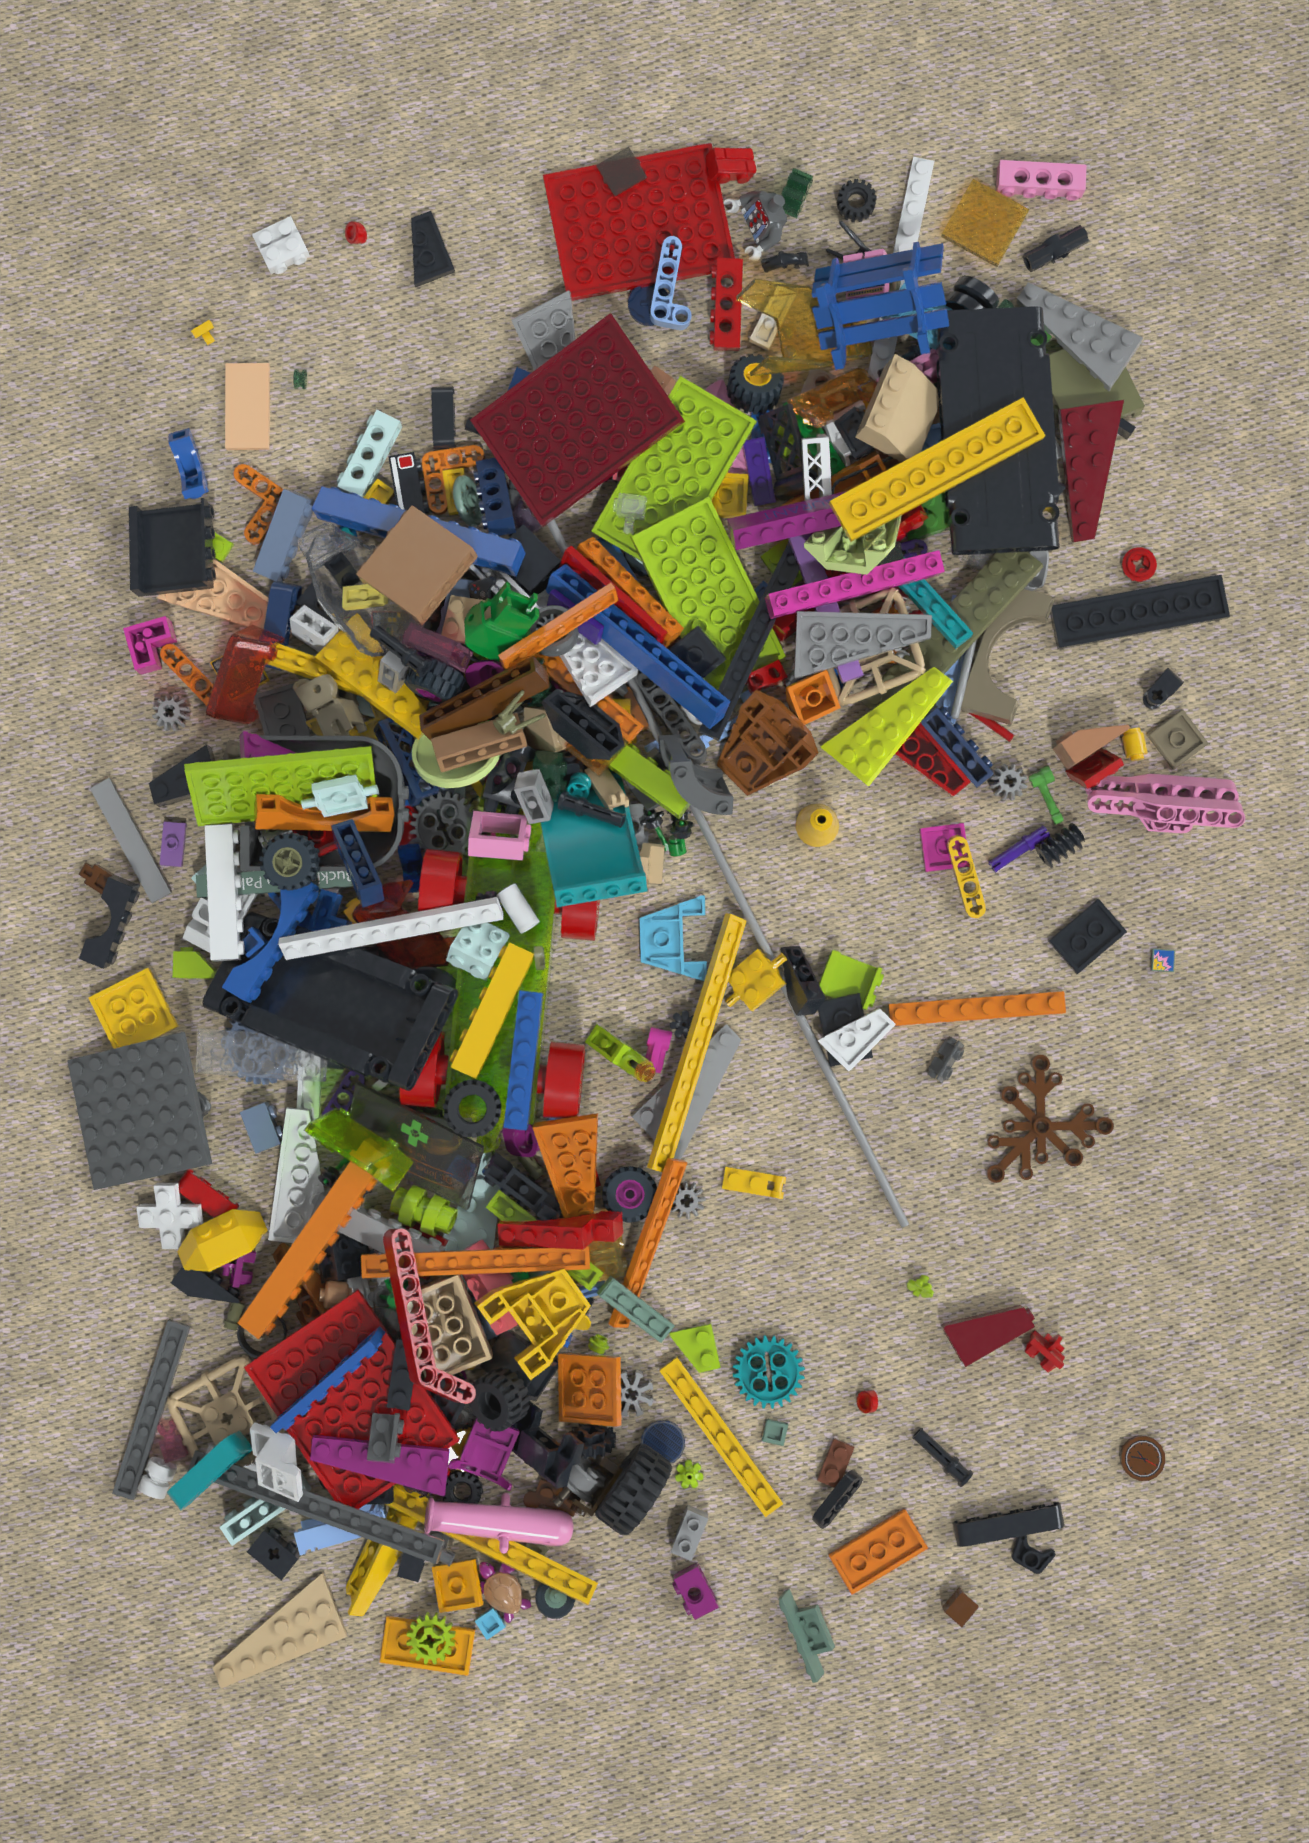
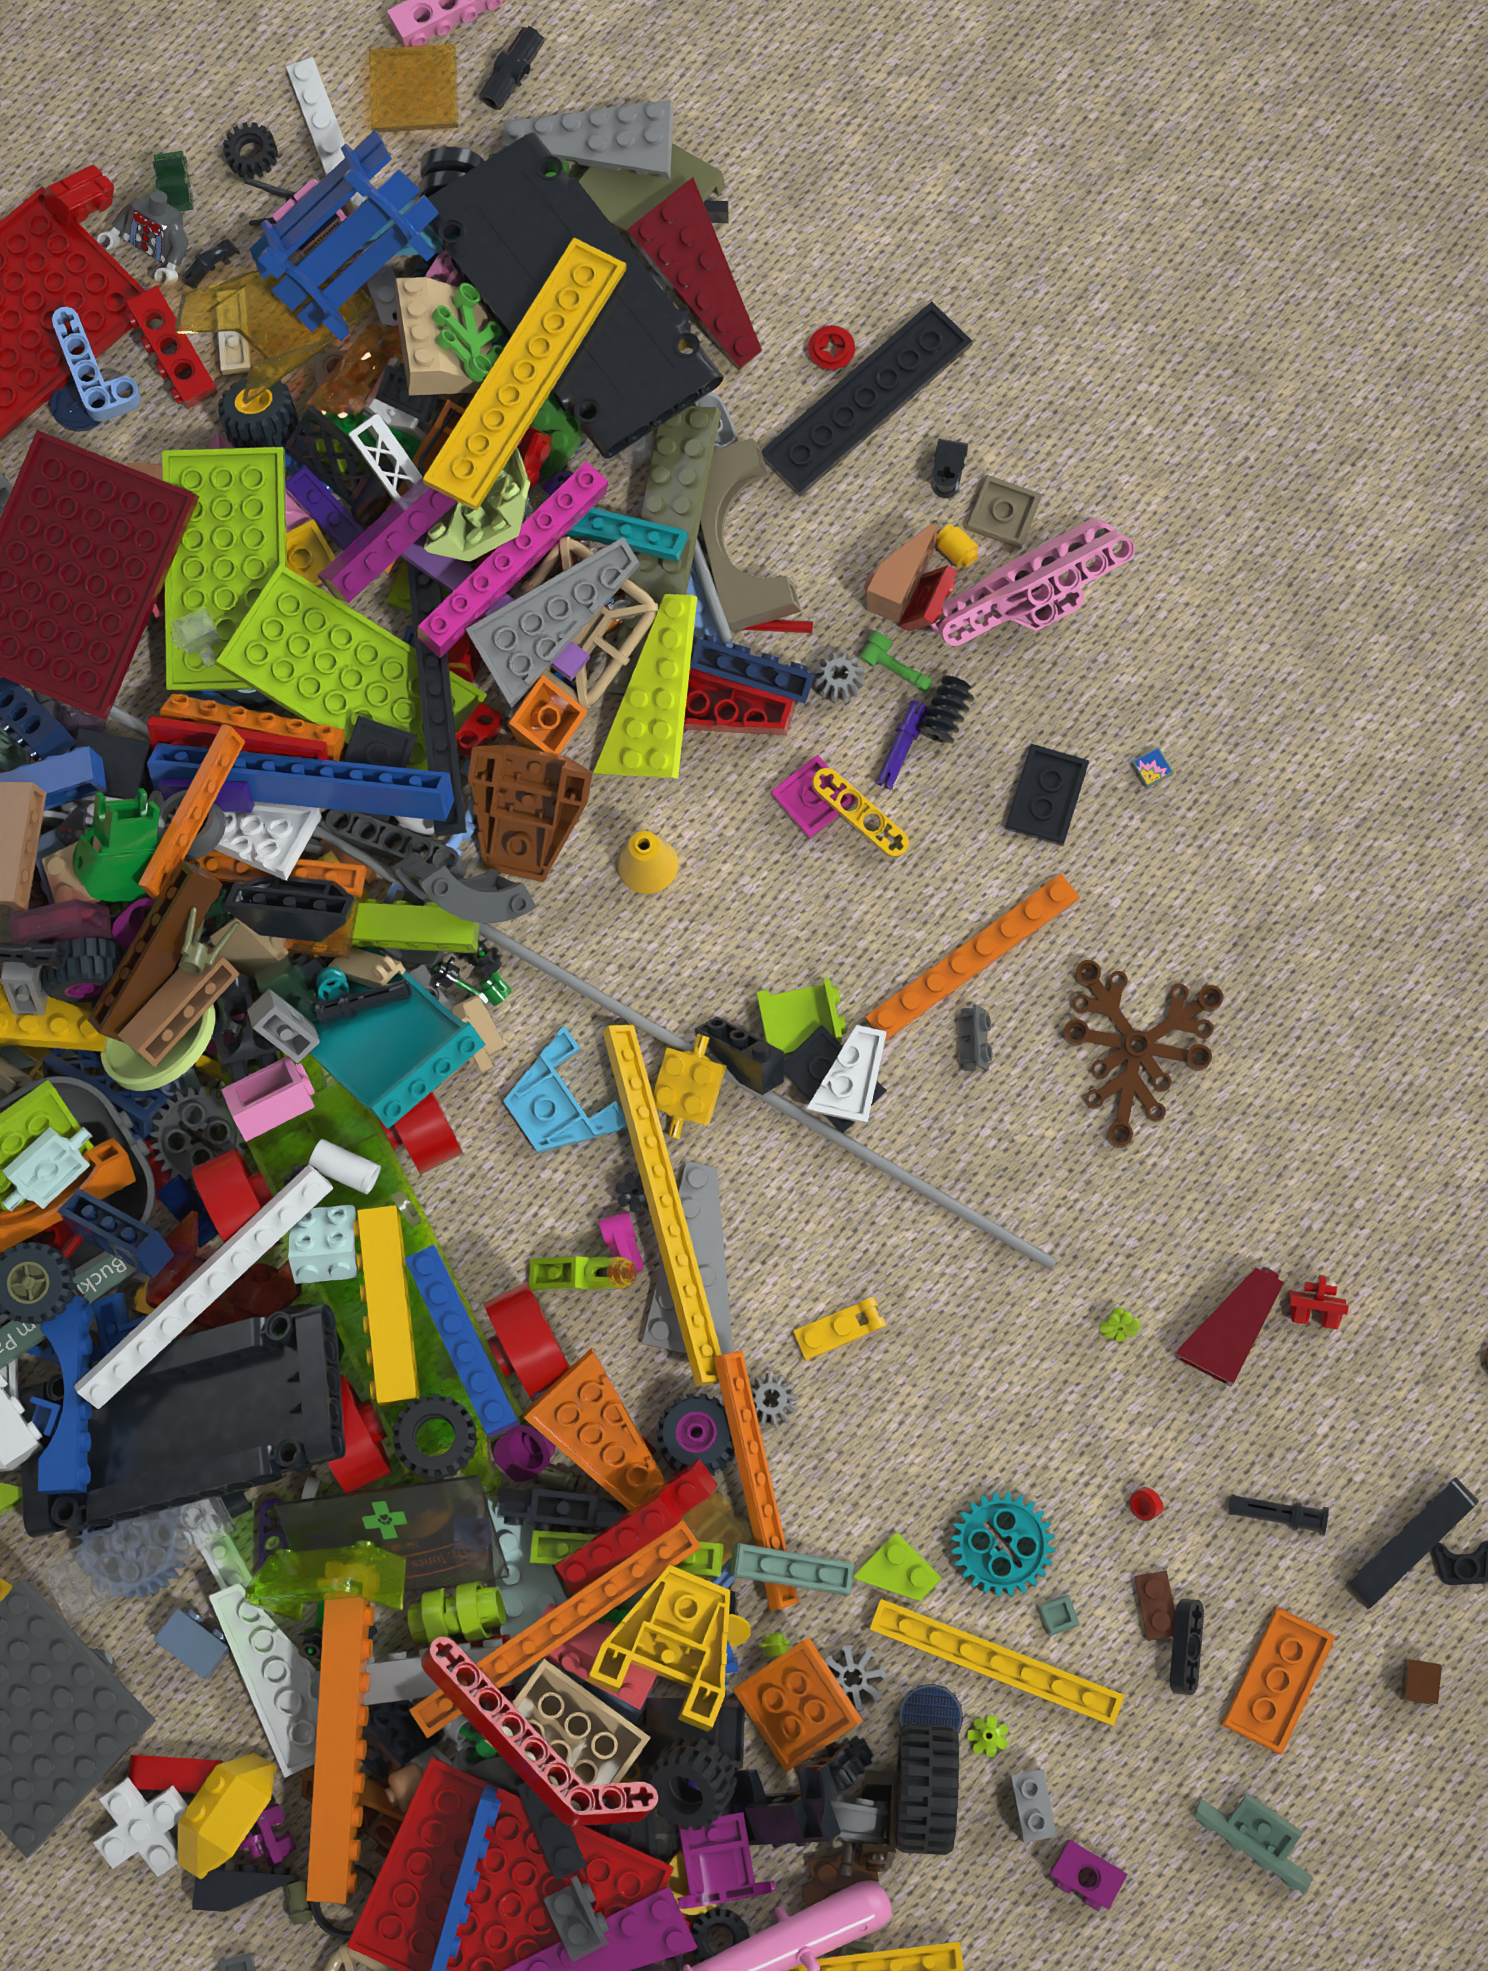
camera: 25 degrees left, 10 degrees down
(910, 445) = (475, 364): none -> bright green plant

